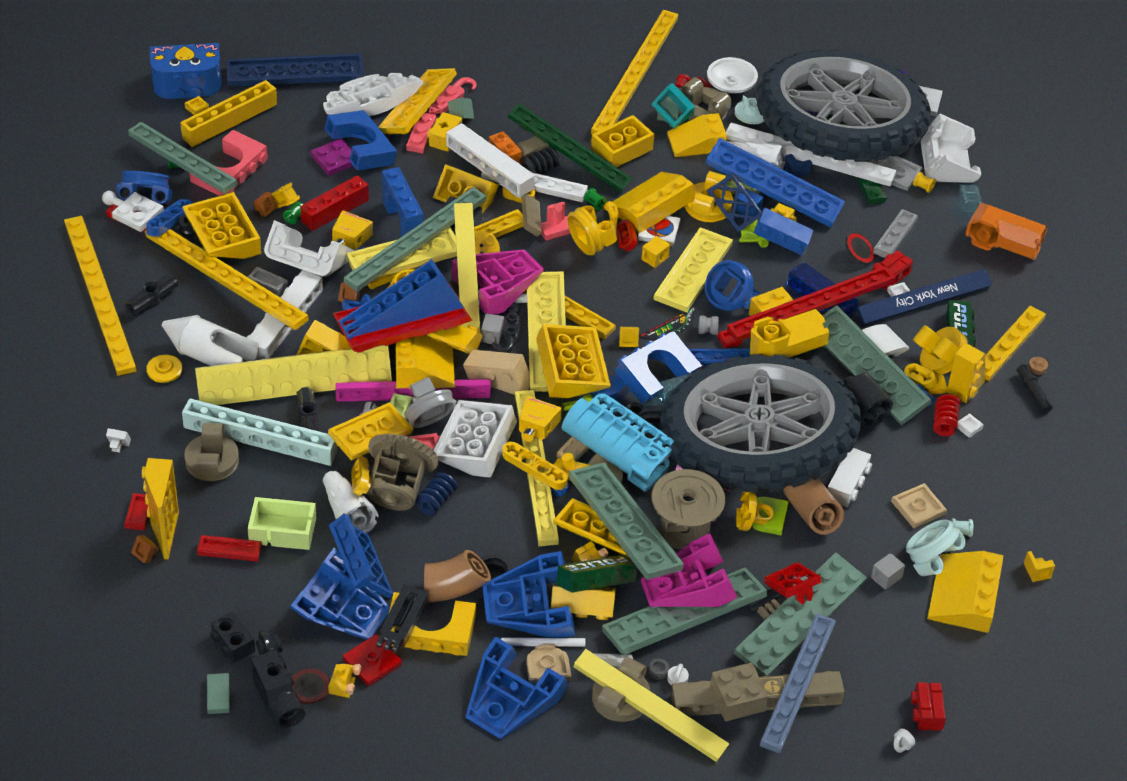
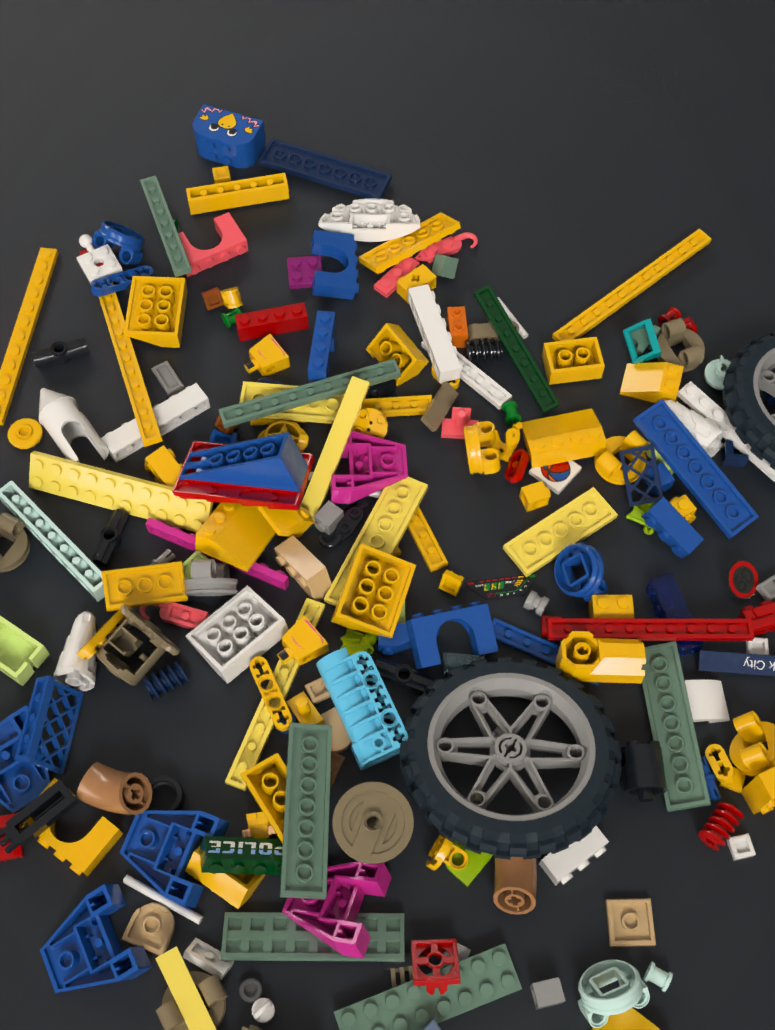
camera: 30 degrees right, 15 degrees up
(284, 246) = (199, 358): white windscreen -> none
(732, 75) = (726, 321): white dish -> none

